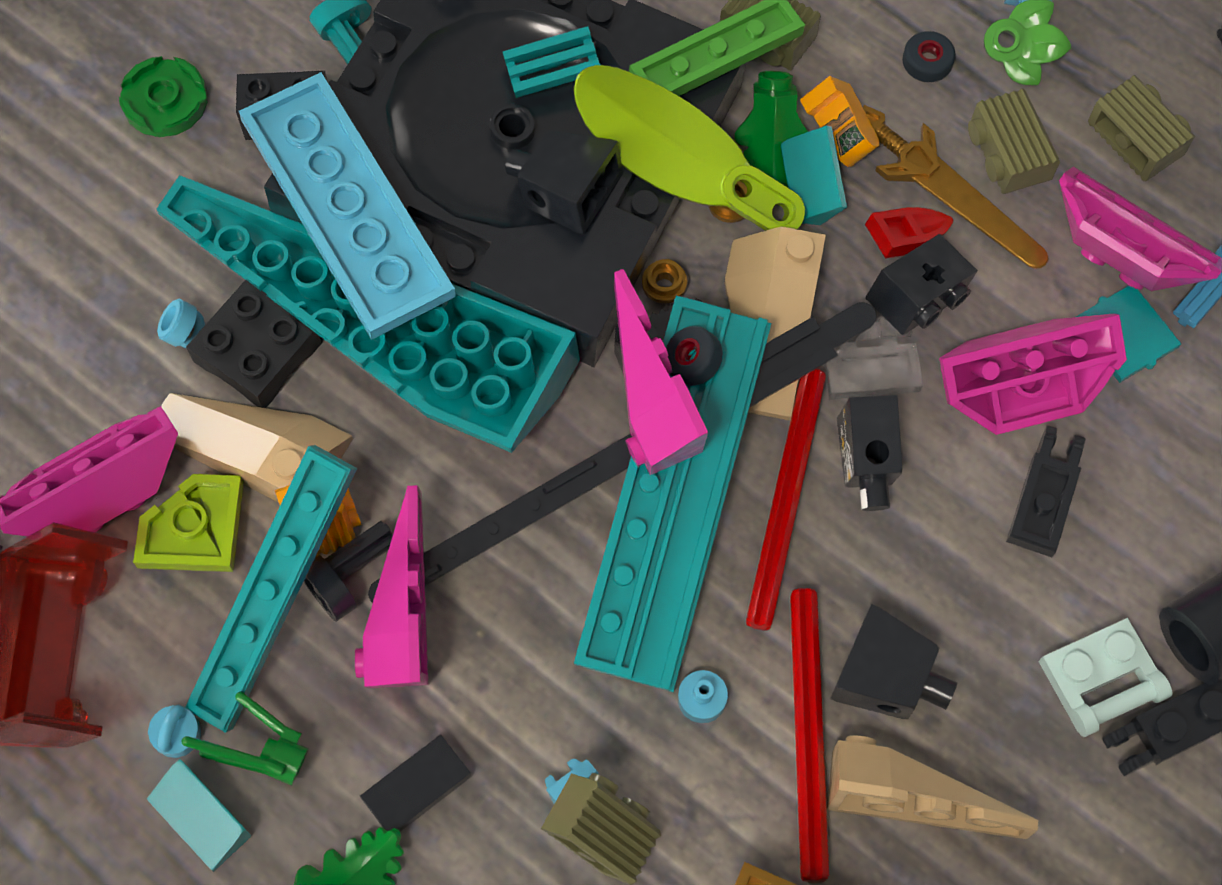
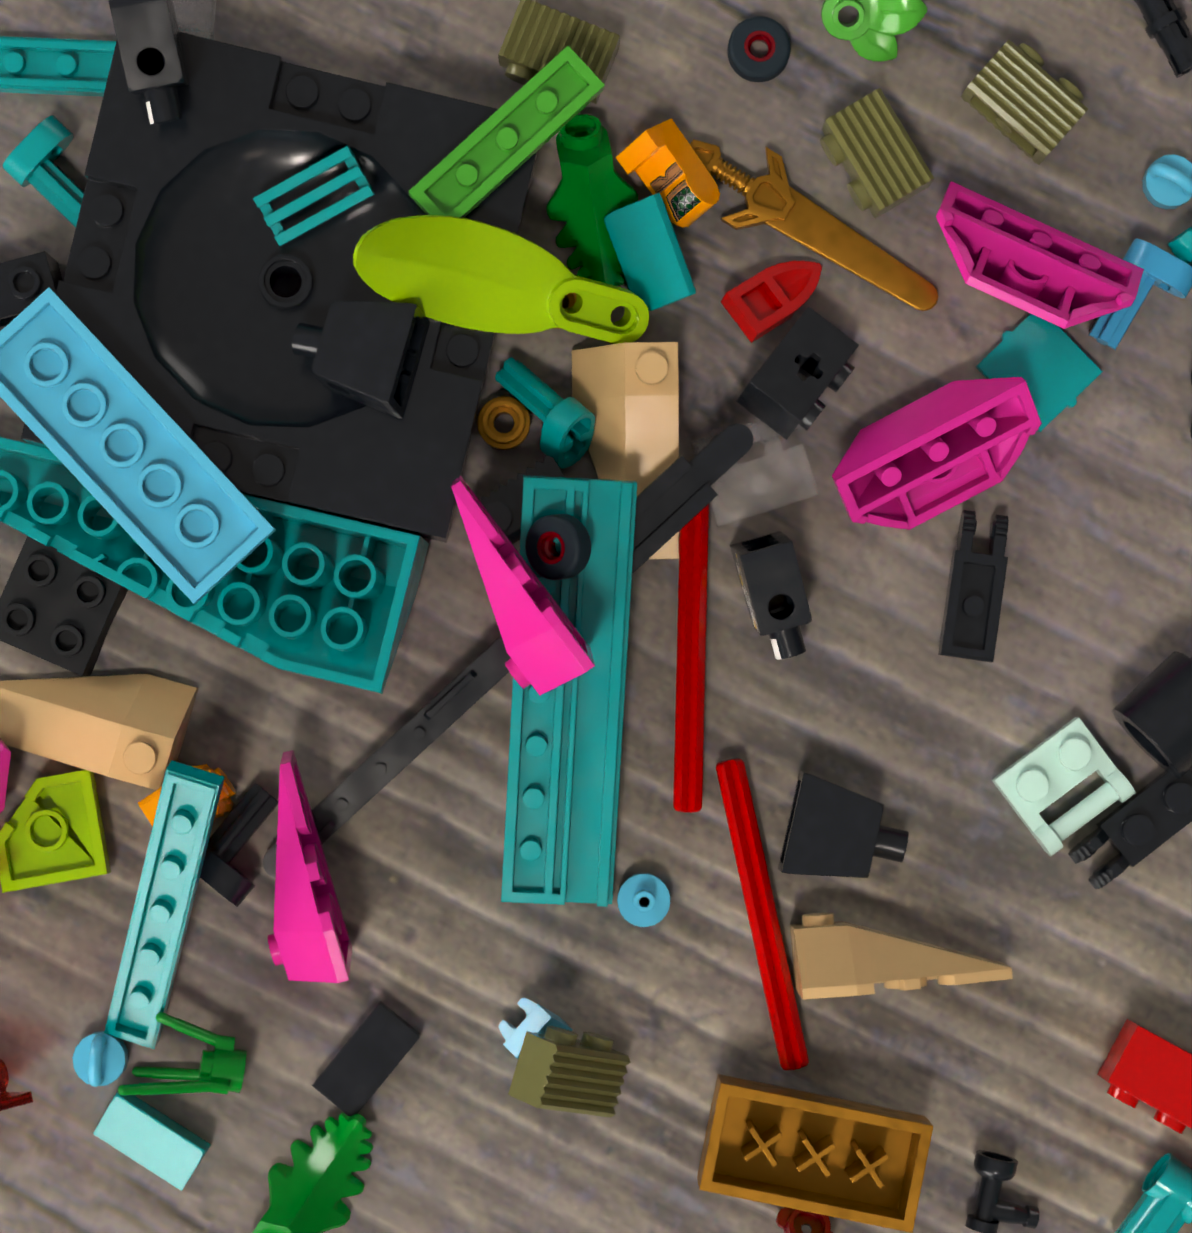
camera: 15 degrees left, 20 degrees up
(716, 280) = (567, 422): none -> teal piece

